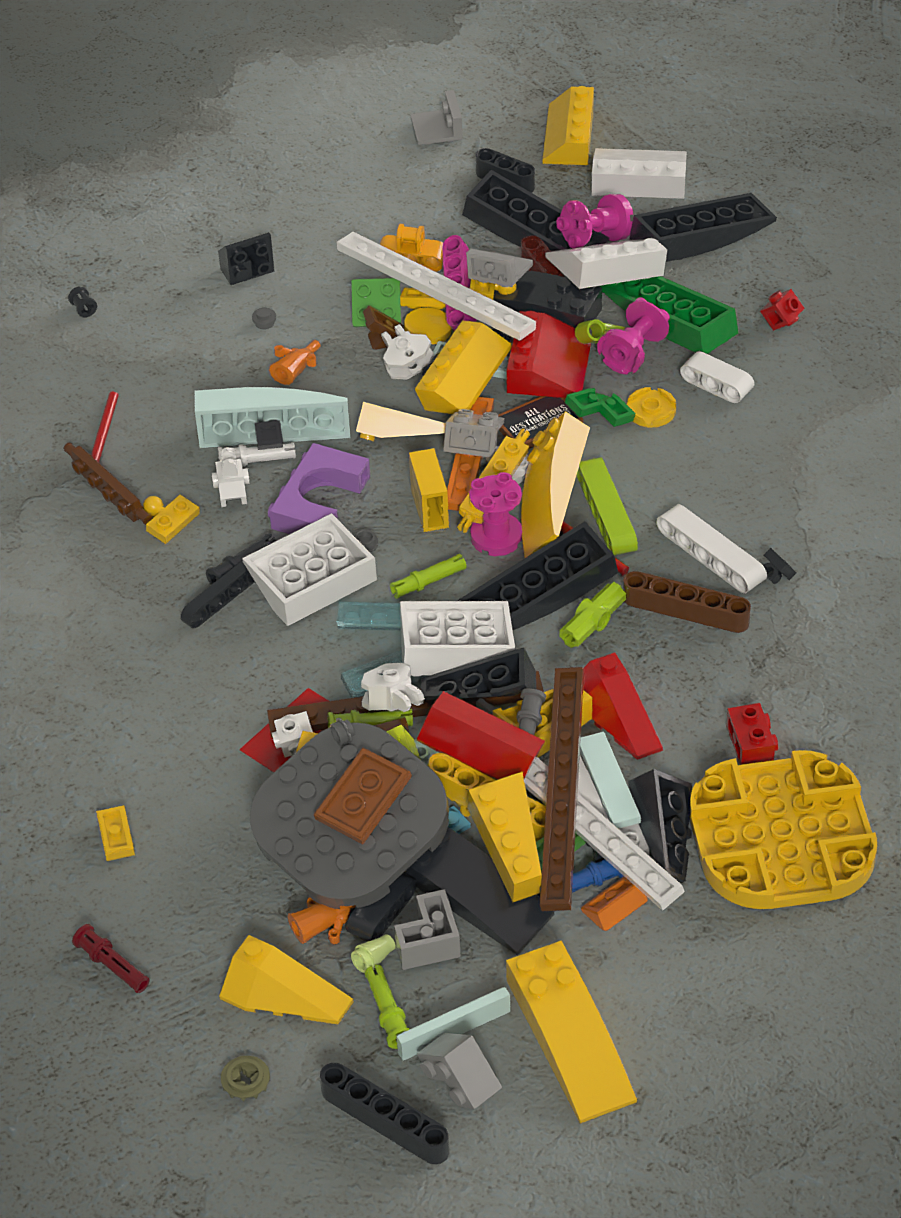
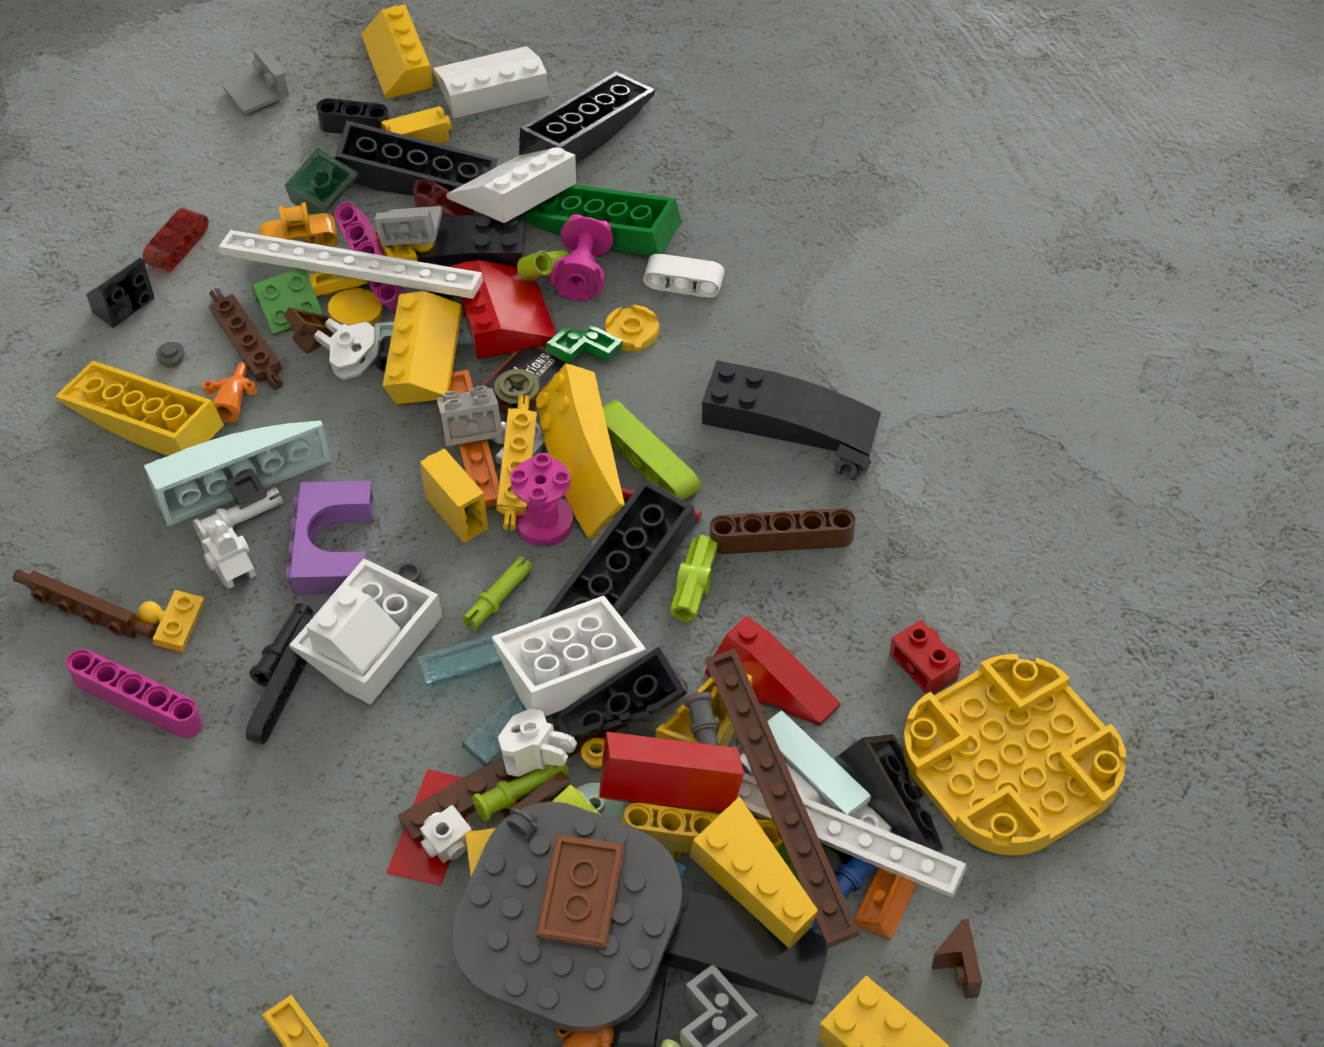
camera: 25 degrees left, 5 degrees up
(104, 425) = (46, 536): red bar -> none
(113, 559) = (117, 684): none -> dark pink beam
(219, 350) = (141, 409): none -> yellow slope
(292, 559) = (352, 629): none -> white slope
(311, 229) = (175, 239): none -> clear red beam
(329, 323) = (246, 338): none -> reddish brown plate
(386, 422) = (364, 433): wedge -> none
(446, 214) = (319, 182): none -> clear green slope
(530, 417) = (516, 378): none -> olive gear
(555, 191) = (425, 125): none -> yellow brick
(609, 218) = (491, 136): dark pink piece -> none
(649, 957) = (960, 953): none -> reddish brown slope
(711, 548) = (776, 463): white beam -> none
(745, 509) = (786, 409): none -> black slope
(786, 307) = (712, 184): red brick -> none

